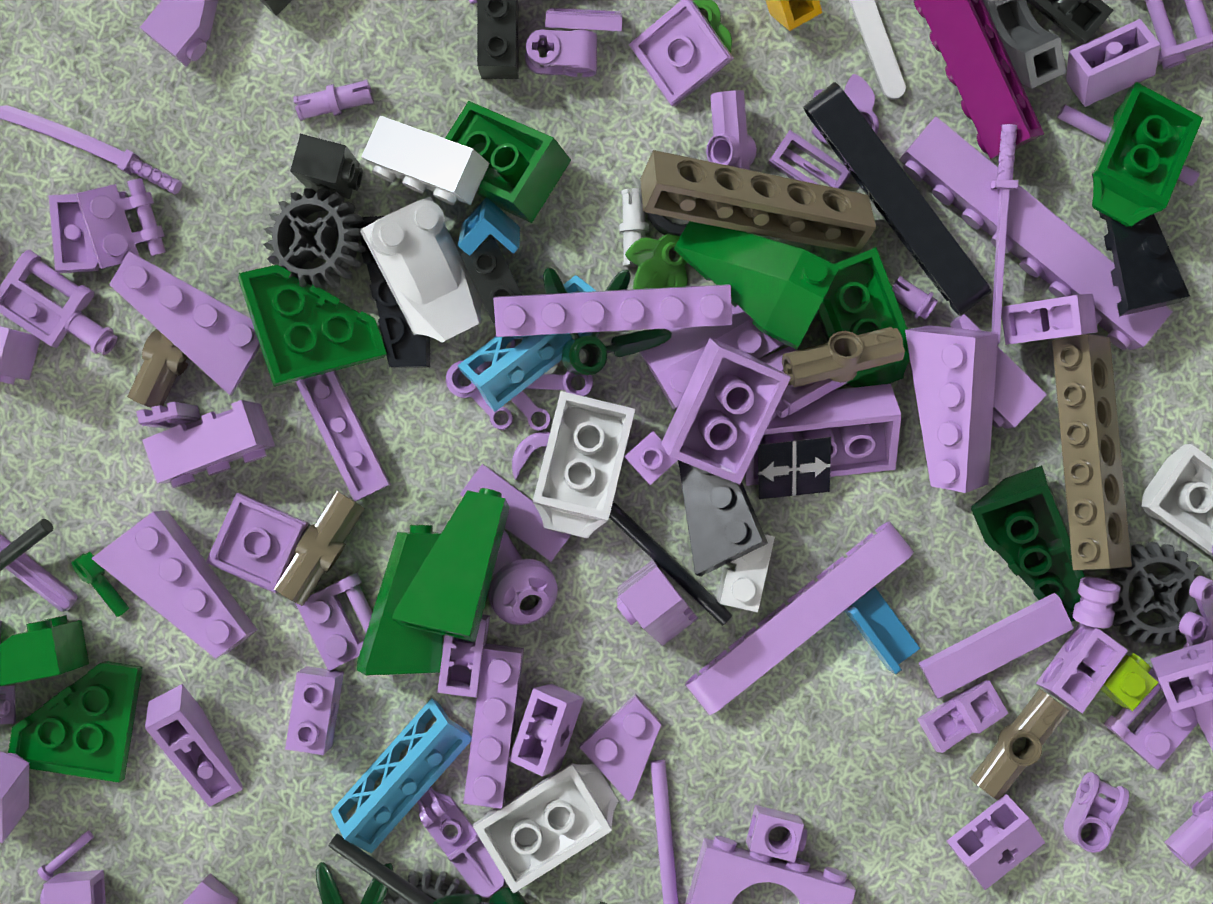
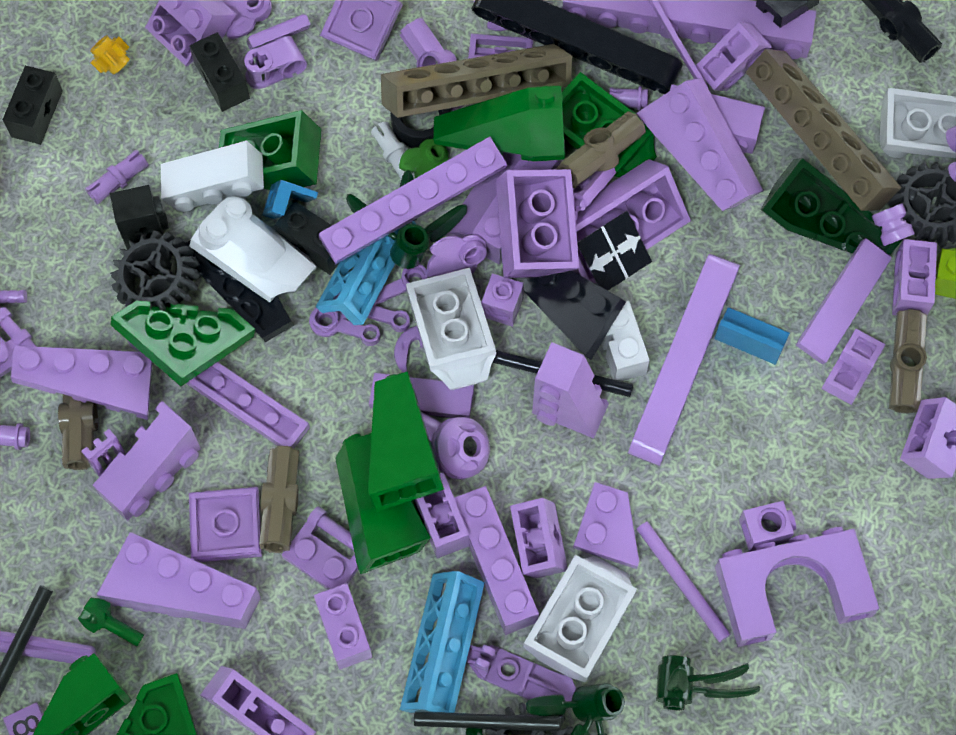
camera: 25 degrees left, 20 degrees down
(630, 390) = (456, 254): none -> lavender plate

